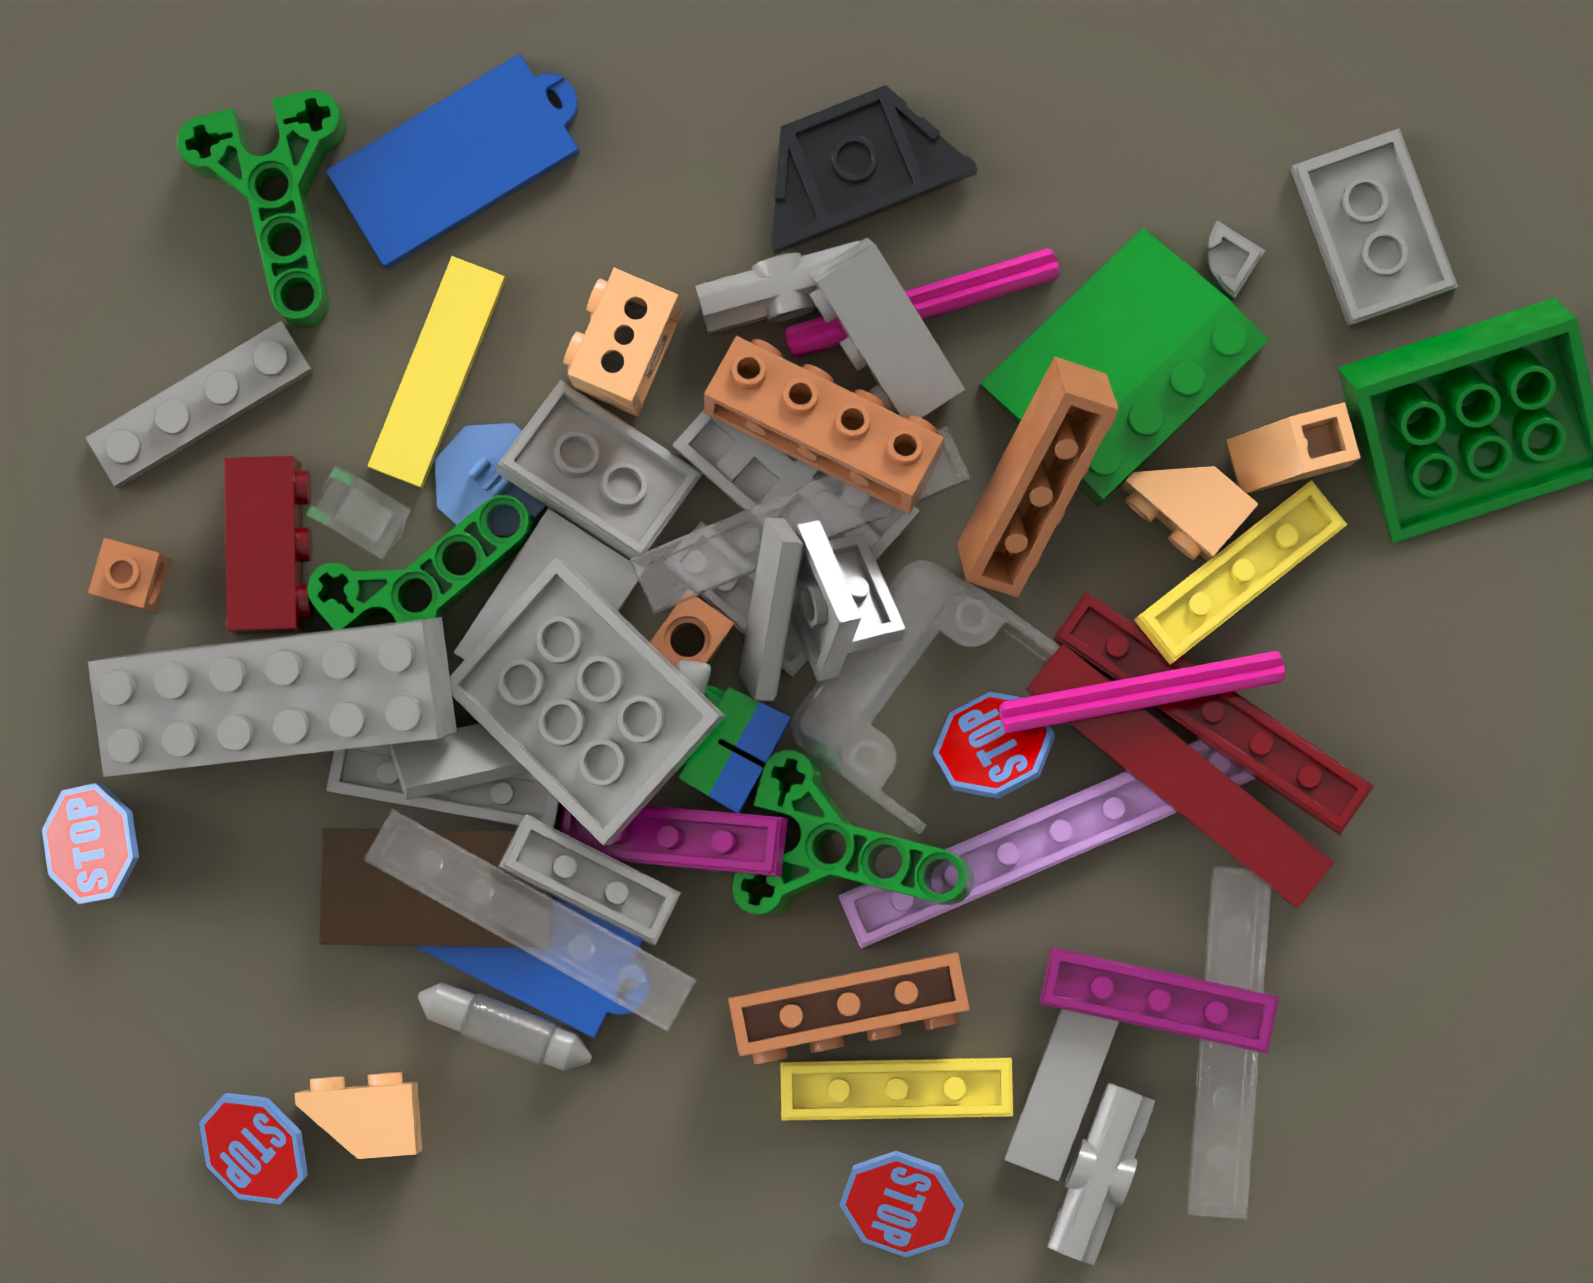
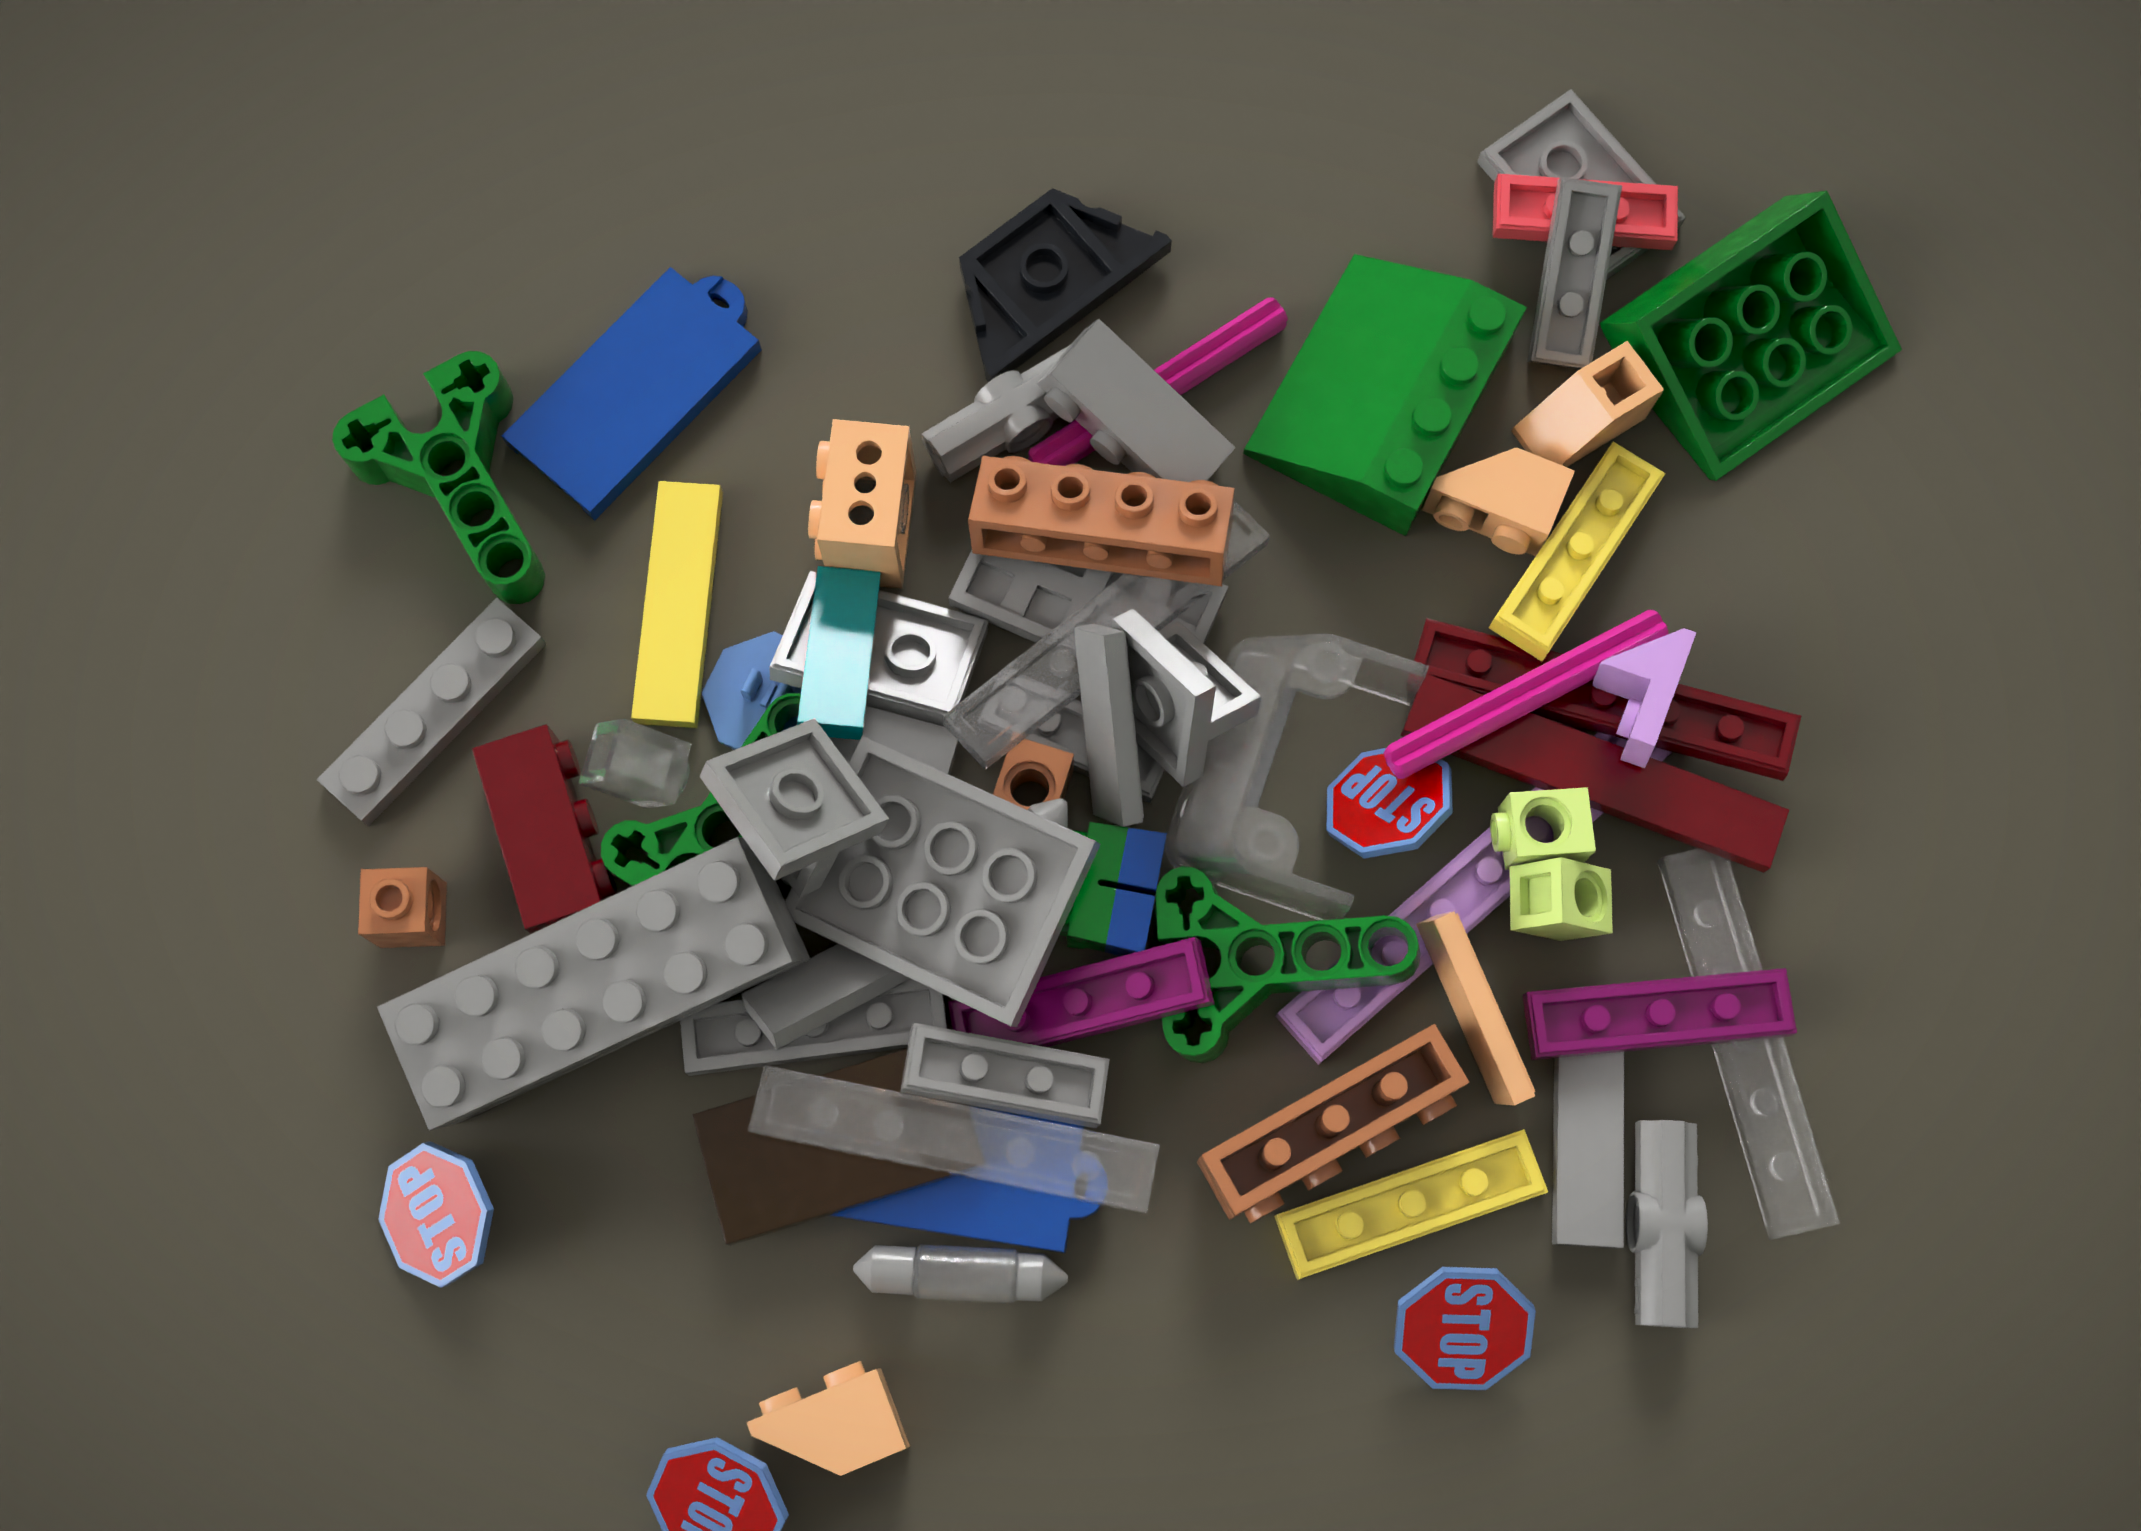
camera: 25 degrees left, 10 degrees down
(479, 603) = (794, 802): none -> light grey bracket
(560, 471) = (840, 651): none -> tile
(1003, 947) = (1476, 1009): none -> light nougat tile
(1037, 476) = (1344, 500): nougat brick -> none
(1108, 878) = (1560, 899): none -> yellowish green brick
(1140, 810) = (1565, 811): none -> yellowish green brick
(1230, 259) = (1450, 251): light grey tile -> none
(1254, 714) = (1648, 681): none -> lavender slope
(1330, 315) = (1574, 273): none -> light grey tile
(1364, 256) = (1644, 217): none -> coral tile

